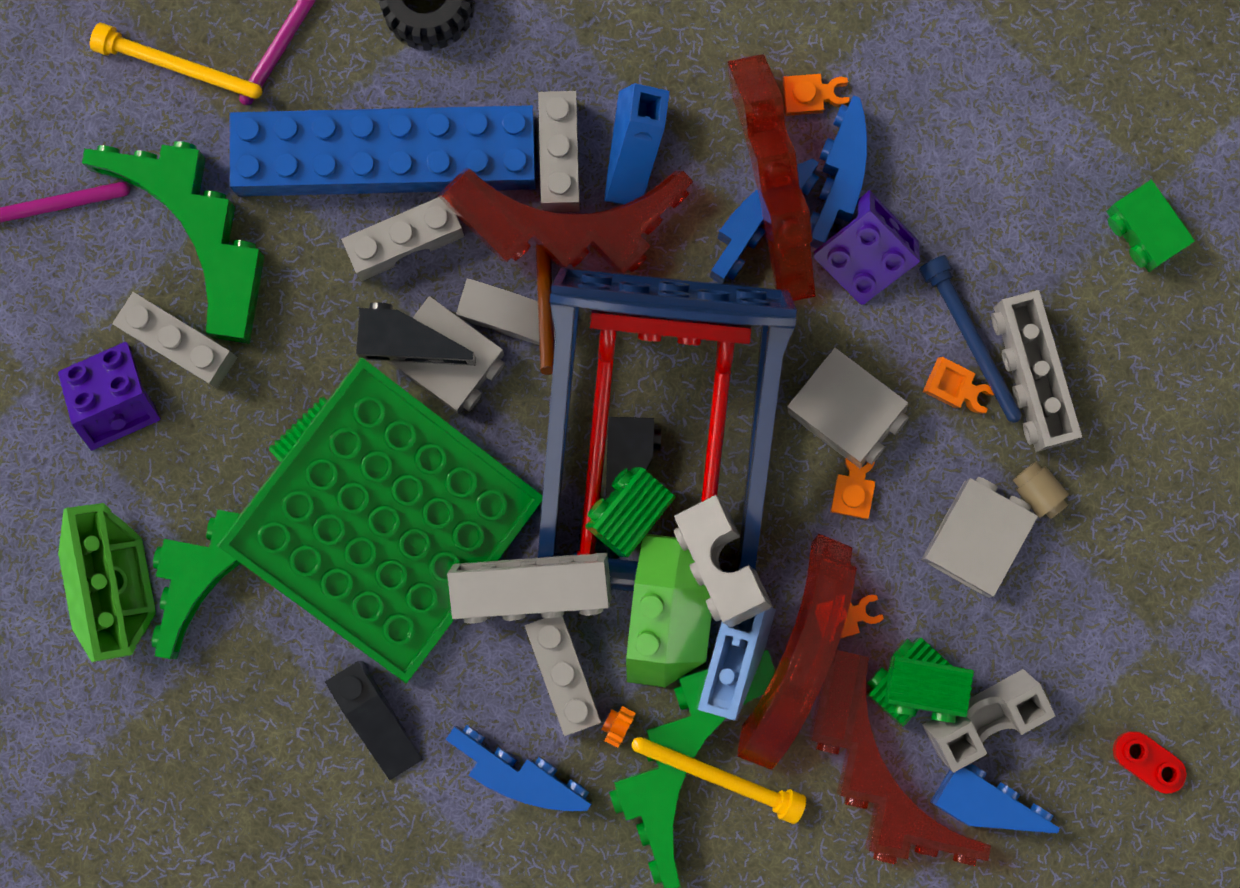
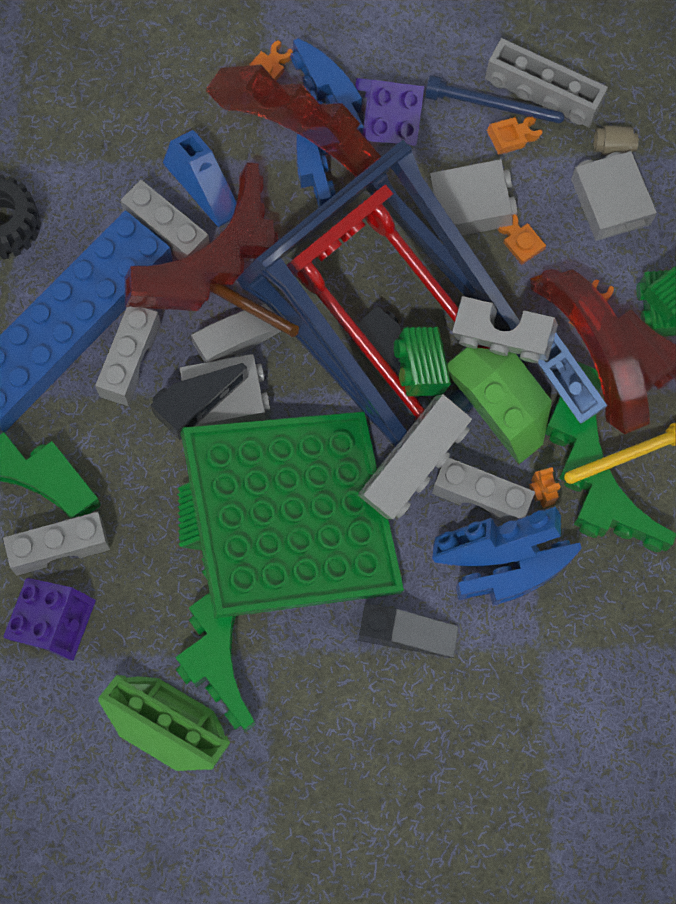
camera: 50 degrees left, 10 degrees down
(521, 730) = (487, 544): none -> blue slope

